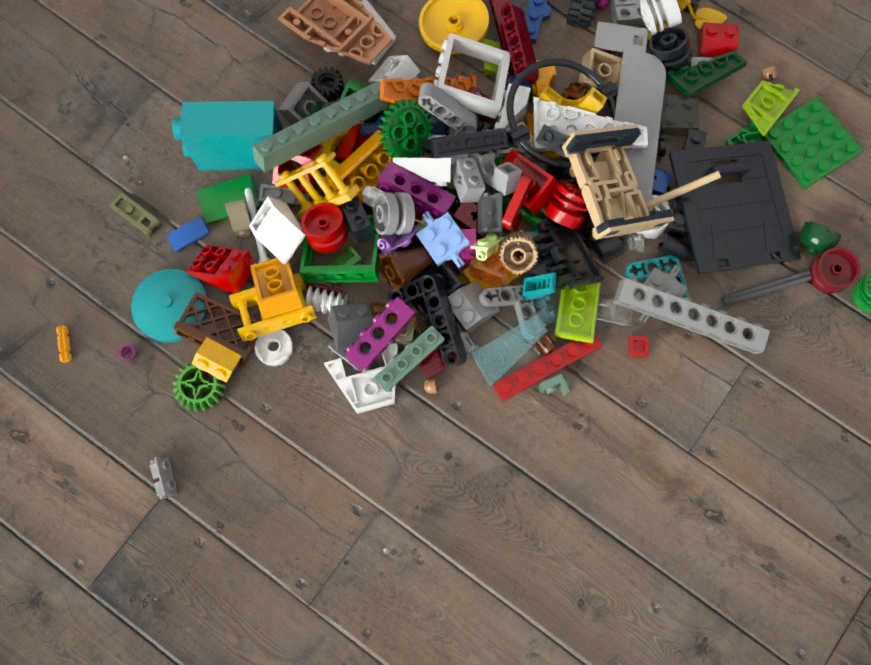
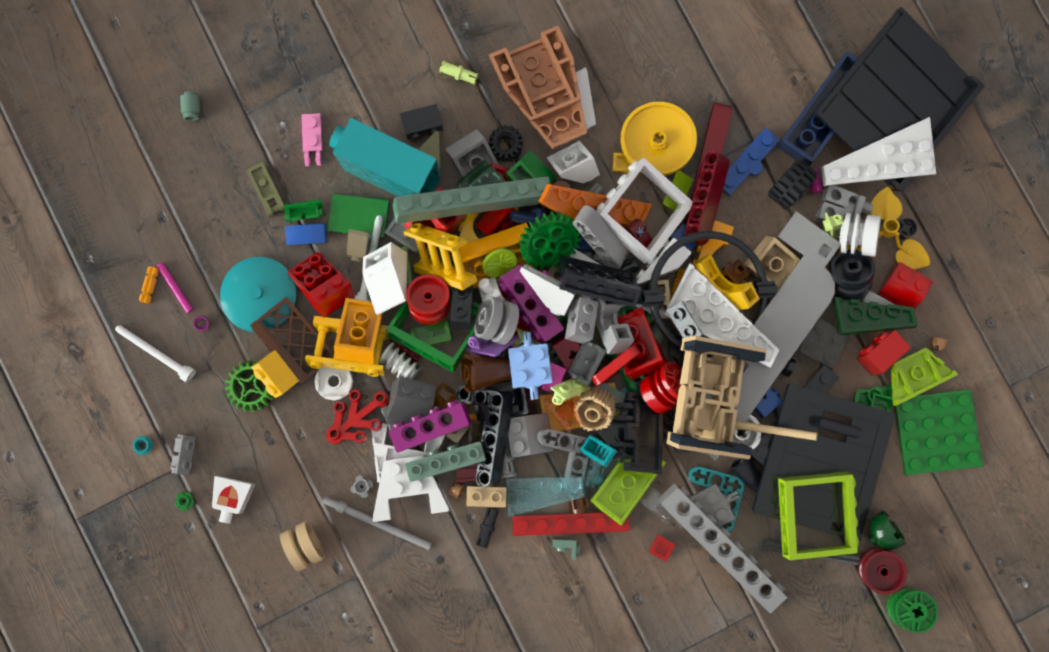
camera: 25 degrees right, 10 degrees up
(34, 177) = (190, 106): none -> sand green brick
(89, 335) = (174, 287): none -> dark pink bar
(116, 485) = (137, 445): none -> teal plate
(132, 403) = (185, 372): none -> white piece
(156, 155) = (312, 137): none -> bright pink hinge
(177, 216) = (303, 210): none -> green hinge
(184, 524) = (189, 501): none -> green plate
(226, 492) = (230, 496): none -> white torso
(248, 91) = (421, 122): none -> black brick
(259, 48) = (459, 72): none -> yellowish green pin
(309, 368) = (355, 419): none -> red plant
(315, 501) = (302, 546): none -> tan wheel
(335, 452) = (342, 507): none -> light grey bar
(344, 420) = (361, 491): none -> light grey plate
(370, 169) = (499, 262): none -> lime wheel
(375, 403) = (396, 483): none -> white wing
(431, 57) = (620, 164): none -> yellow tile
(461, 376) = (486, 496): none -> tan brick
(475, 405) = (487, 527): none -> black pin
(633, 17) = (832, 225): none -> yellowish green hinge
(730, 97) = (883, 352): none -> red brick
(734, 264) = (787, 515): none -> lime window

